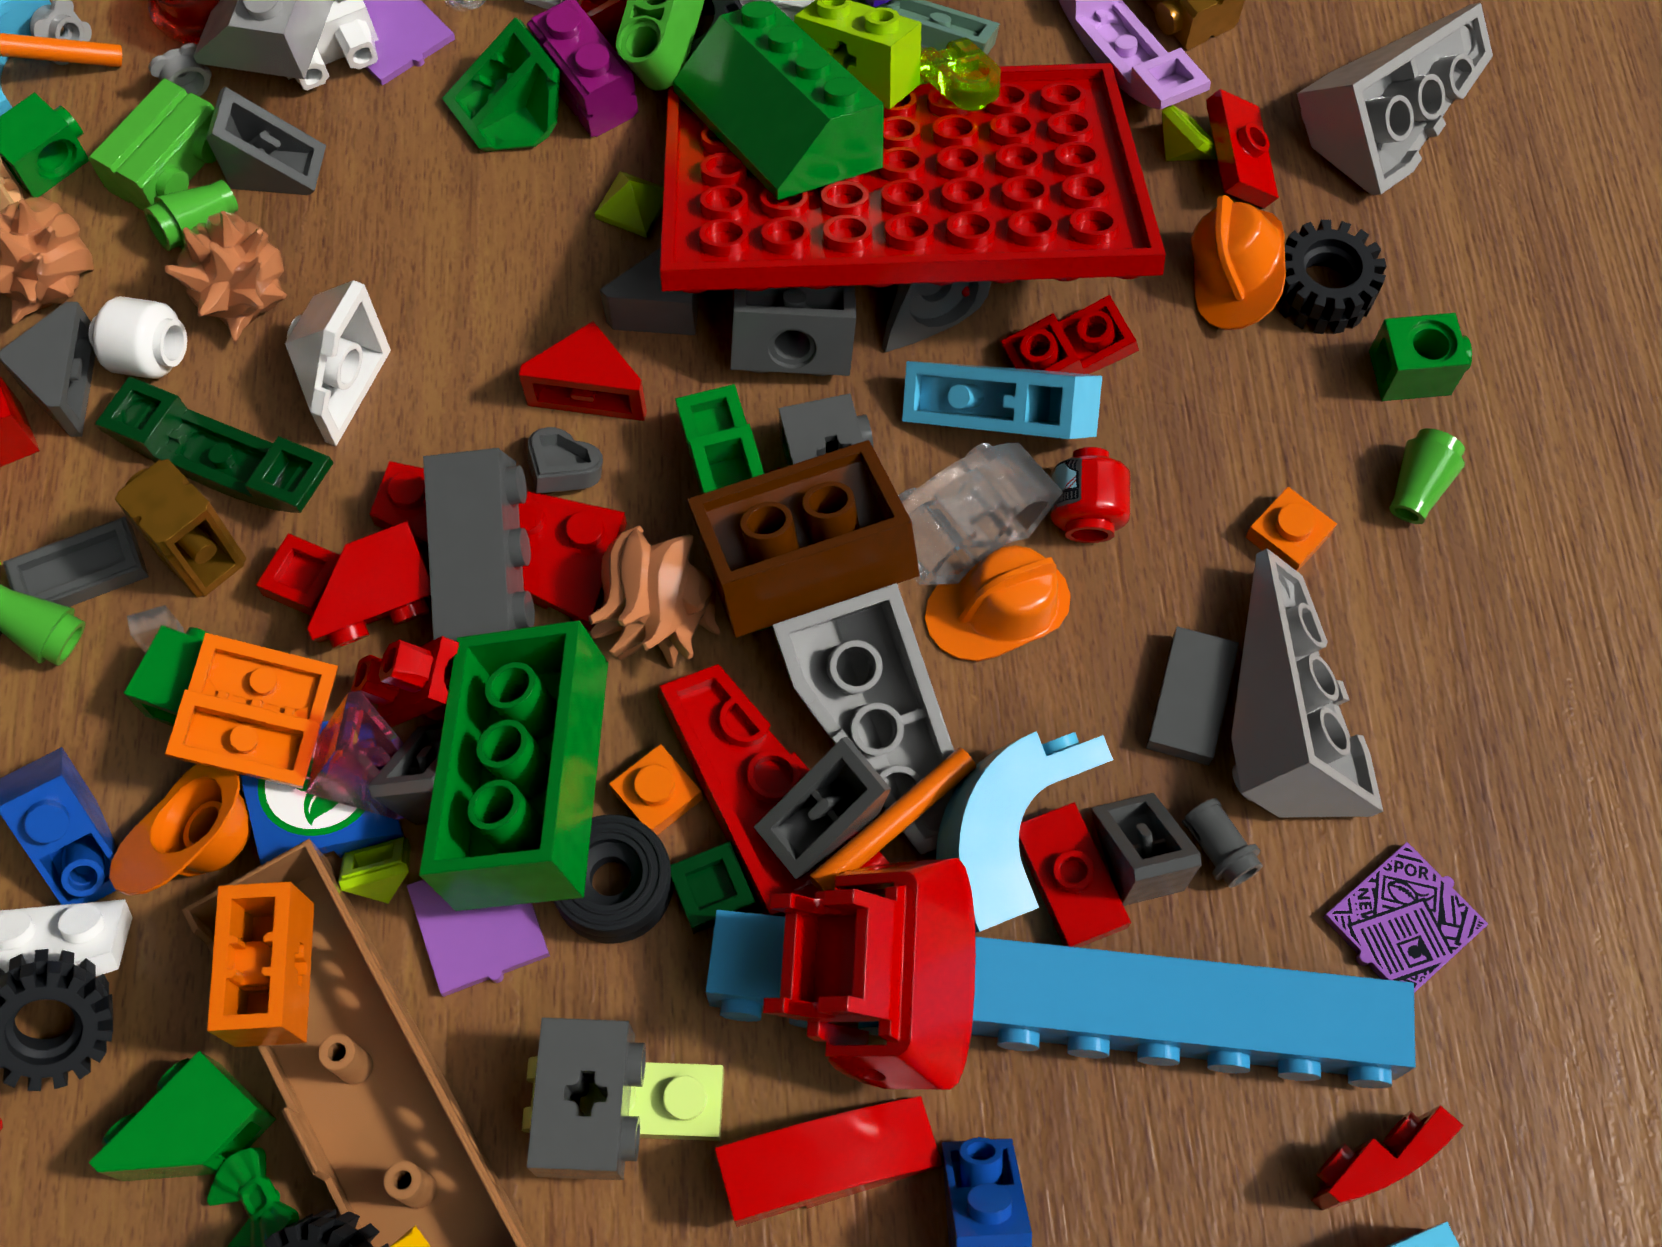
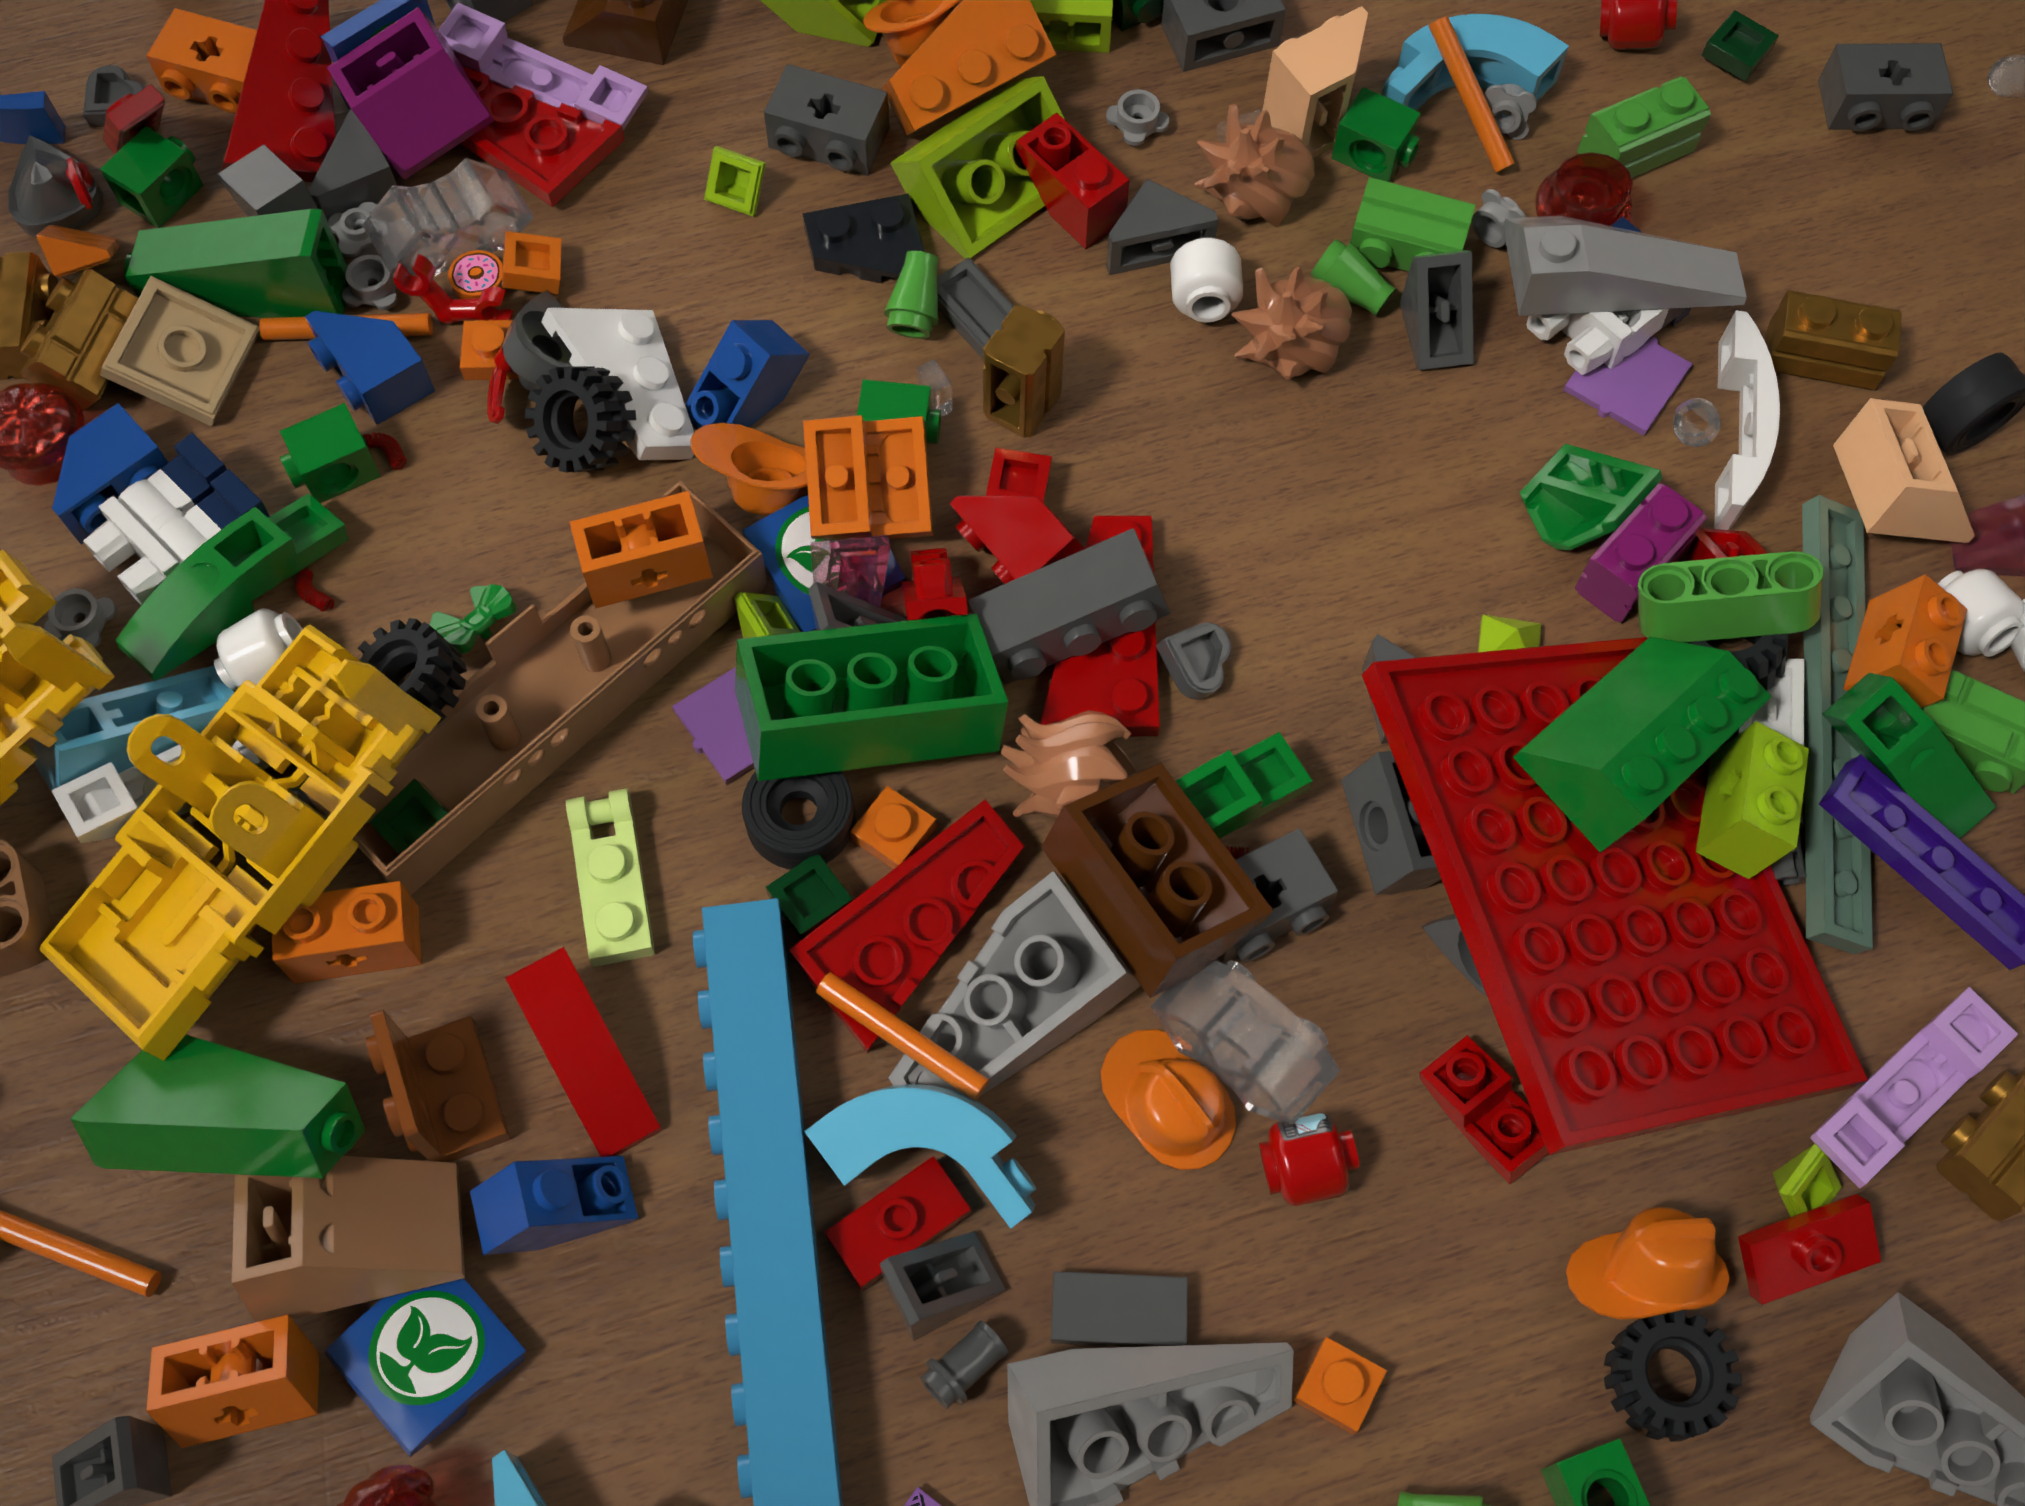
camera: 75 degrees right, 0 degrees up
(185, 1127) = (523, 551): green slope -> none
(212, 452) = (1119, 373): dark green slope -> none
(337, 355) = (1231, 439): white slope -> none
(561, 1136) = (555, 826): dark grey brick -> none
(584, 377) = (1292, 651): red slope -> none
(824, 809) = (889, 966): dark grey slope -> none
(890, 951) = (729, 1055): red piece -> none
(962, 74) = (1766, 912): clear neon green plate -> none
(1002, 399) = (1389, 1056): medium azure slope -> none

